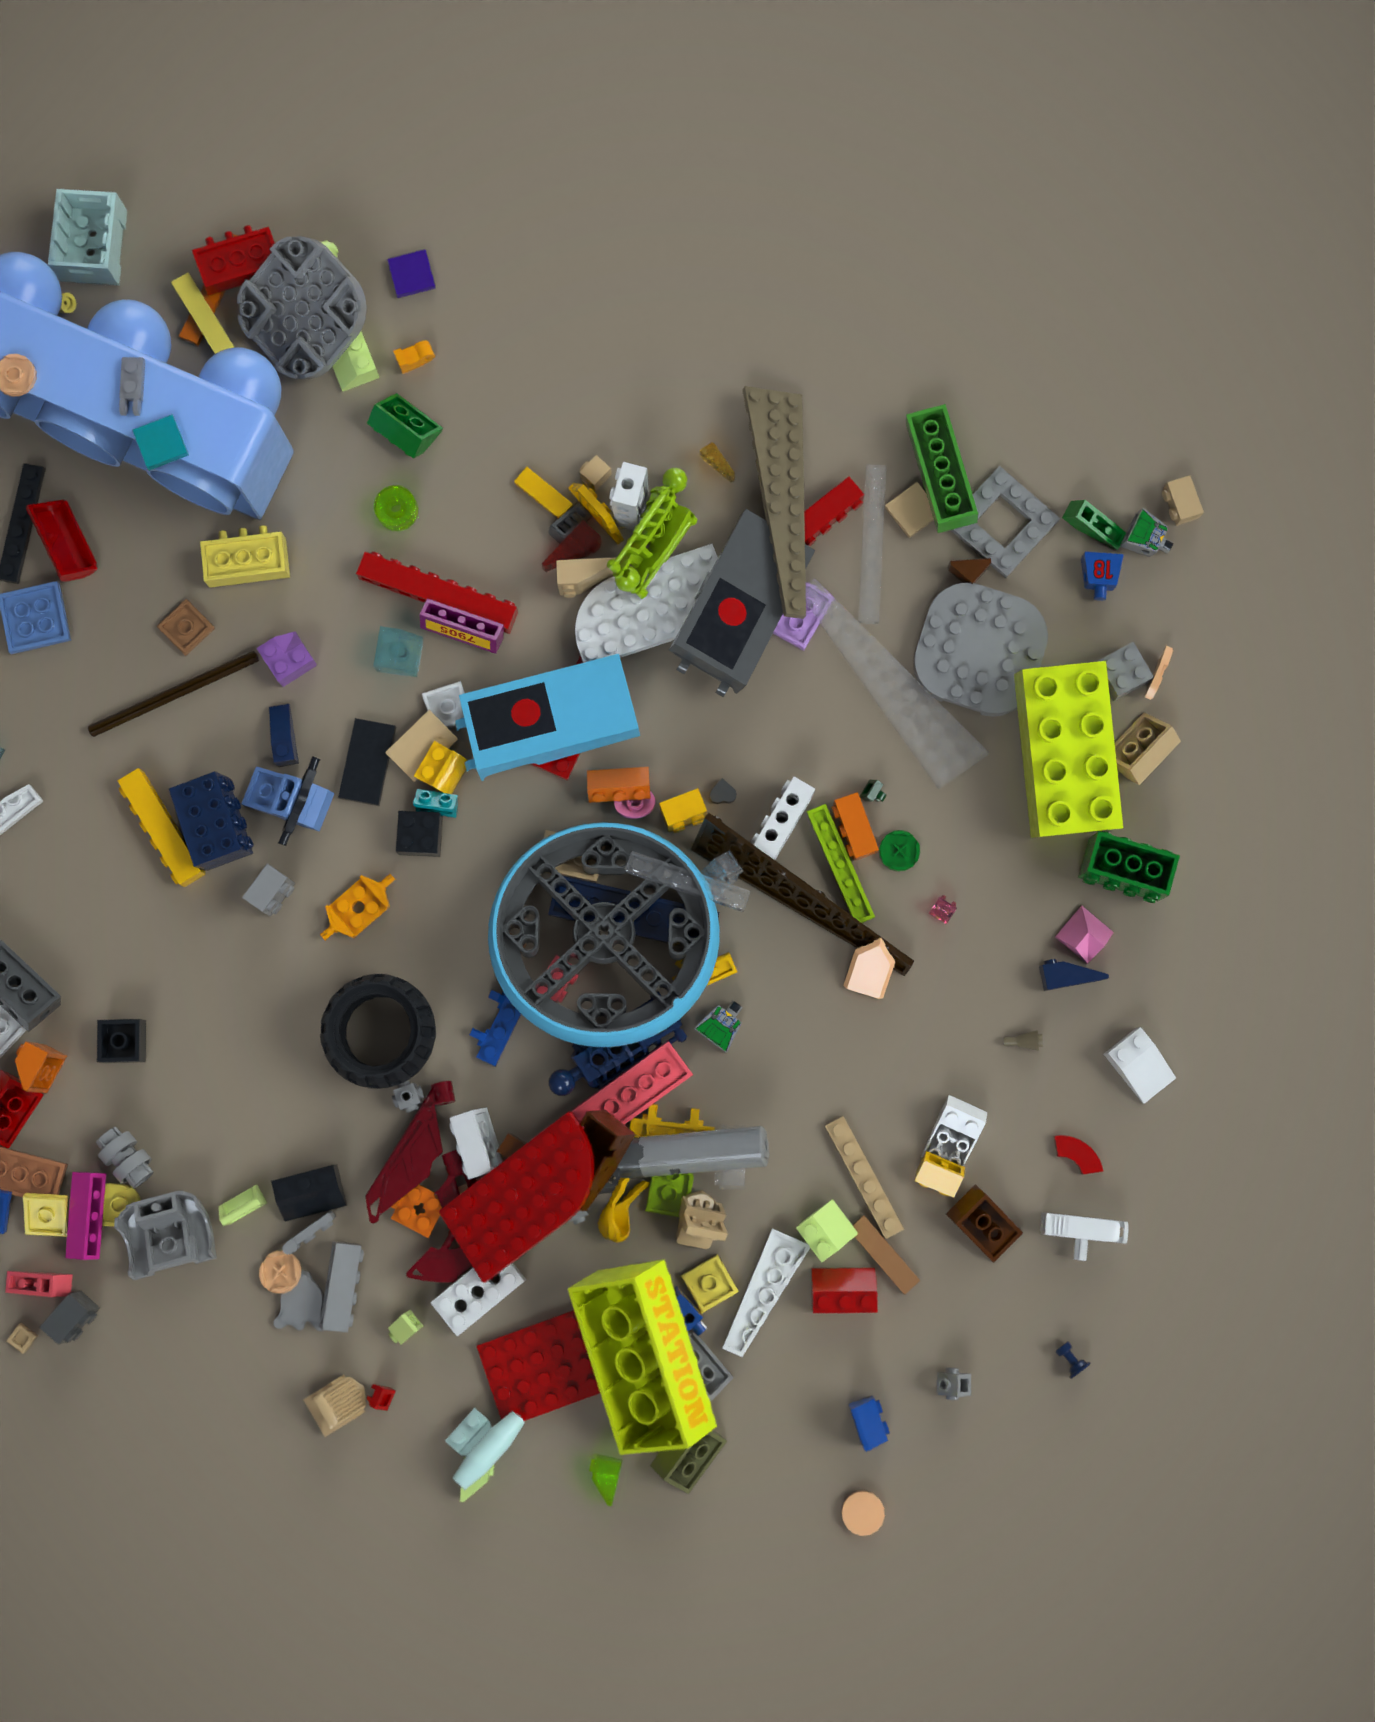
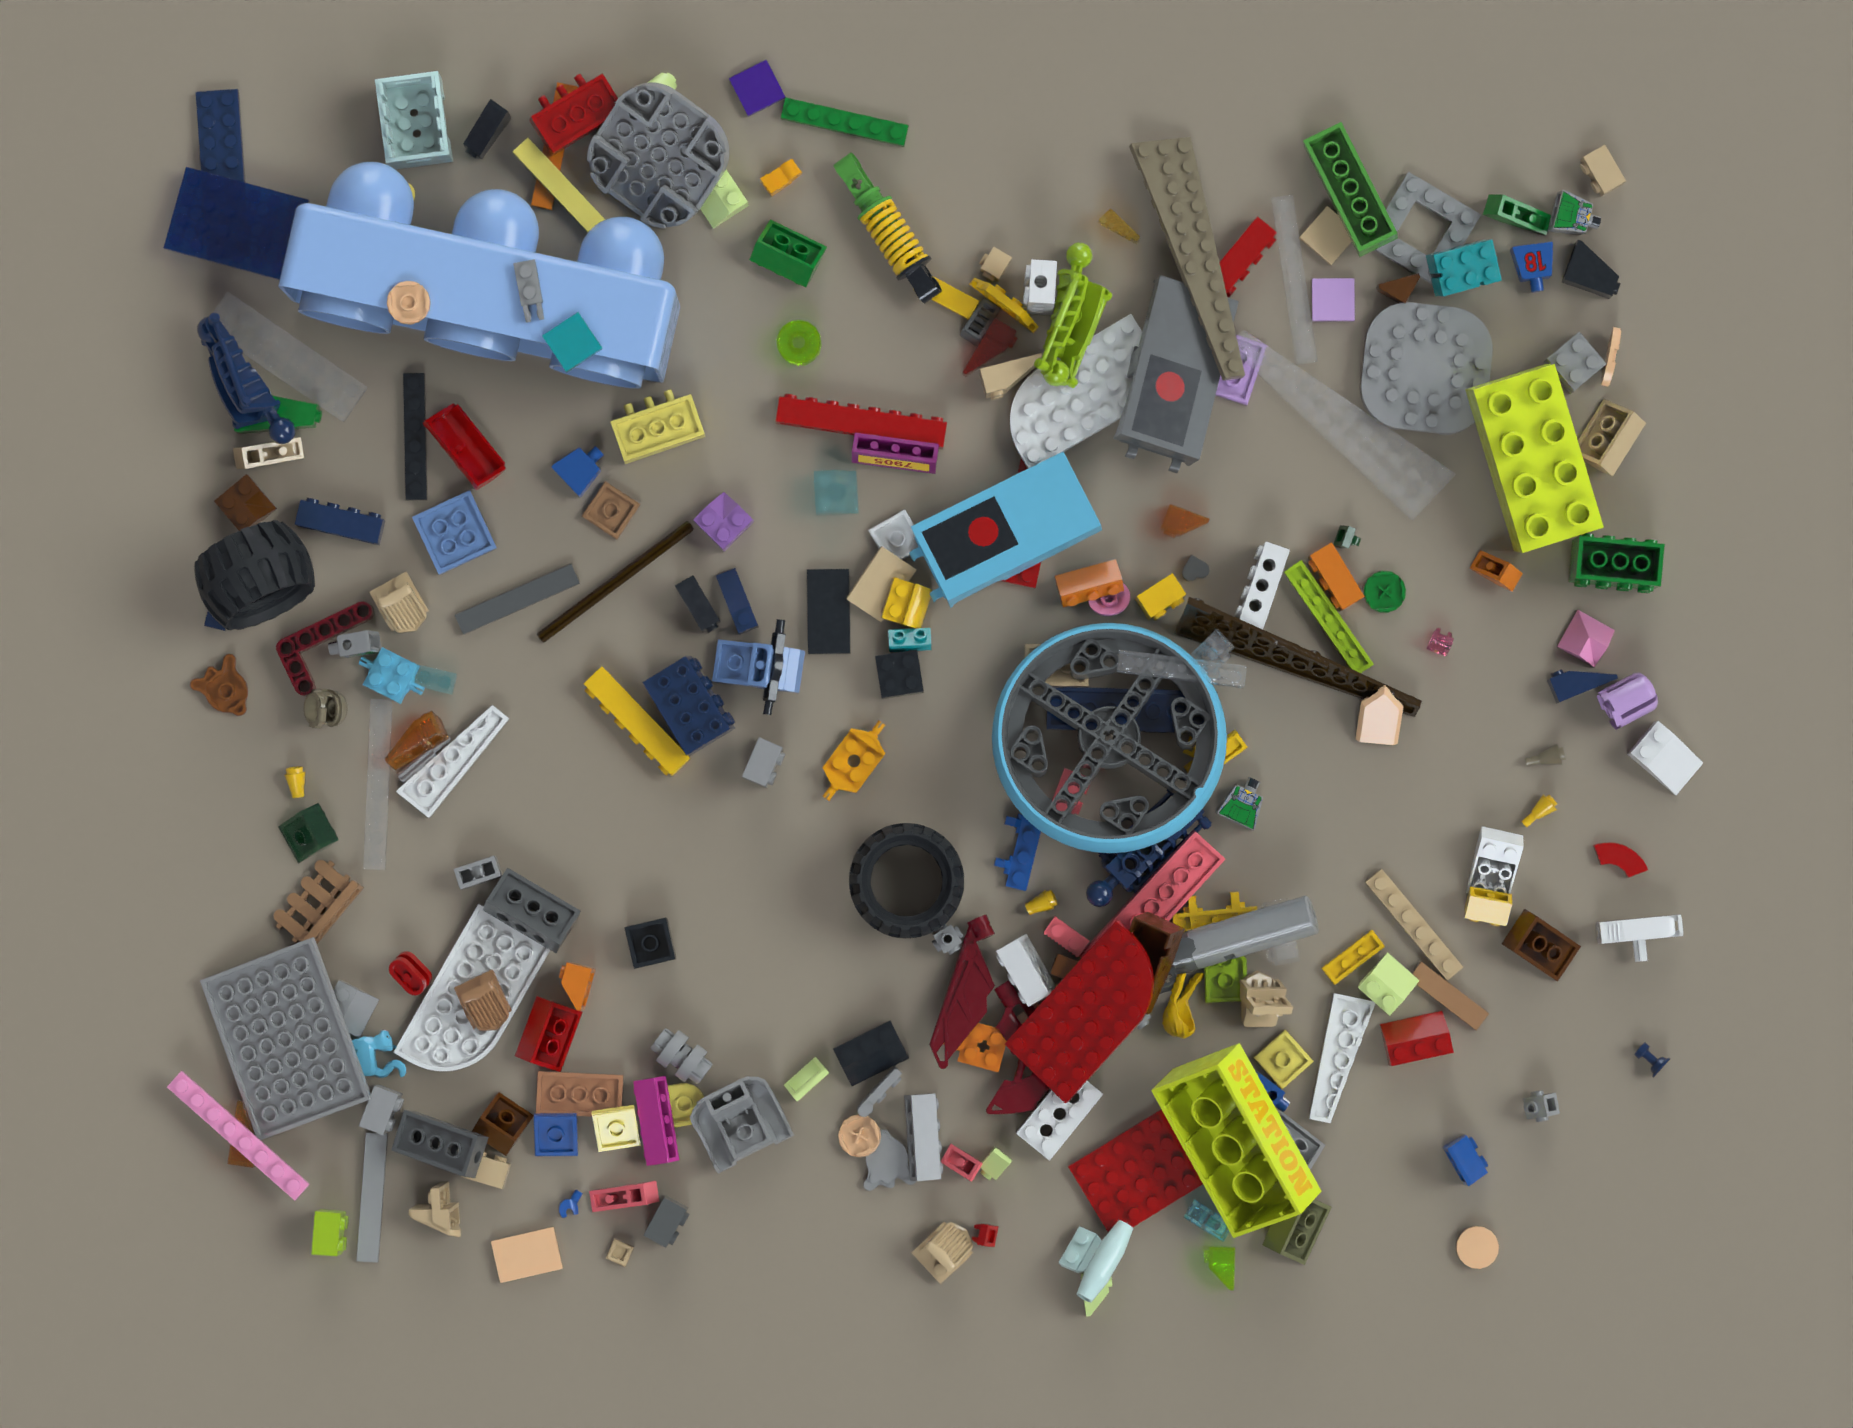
camera: 20 degrees left, 5 degrees up
(78, 691) = (517, 599): none -> dark grey tile
(153, 258) = (486, 129): none -> black slope
(164, 582) = (579, 469): none -> blue torso
(243, 727) = (698, 604): none -> black slope
(372, 1319) = (961, 1162): none -> coral slope
(485, 319) = (844, 122): none -> green plate
(502, 421) = (888, 230): none -> piece
(509, 1080) = (1043, 902): none -> yellow cone
(522, 1118) = (1066, 936): none -> coral brick
(599, 1428) = (1207, 1220): none -> clear light blue slope
(719, 745) = (1181, 521): none -> clear orange slope
(798, 1197) = (1353, 957): none -> yellow tile
(905, 569) = (1333, 299): none -> lavender tile
(1011, 852) = (1496, 570): none -> orange slope
(1013, 1088) = (1543, 807): none -> yellow cone
(1034, 561) = (1464, 267): none -> teal piece
(1115, 1001) = (1628, 699): none -> lavender cylinder
(1153, 591) = (1590, 272): none -> black slope

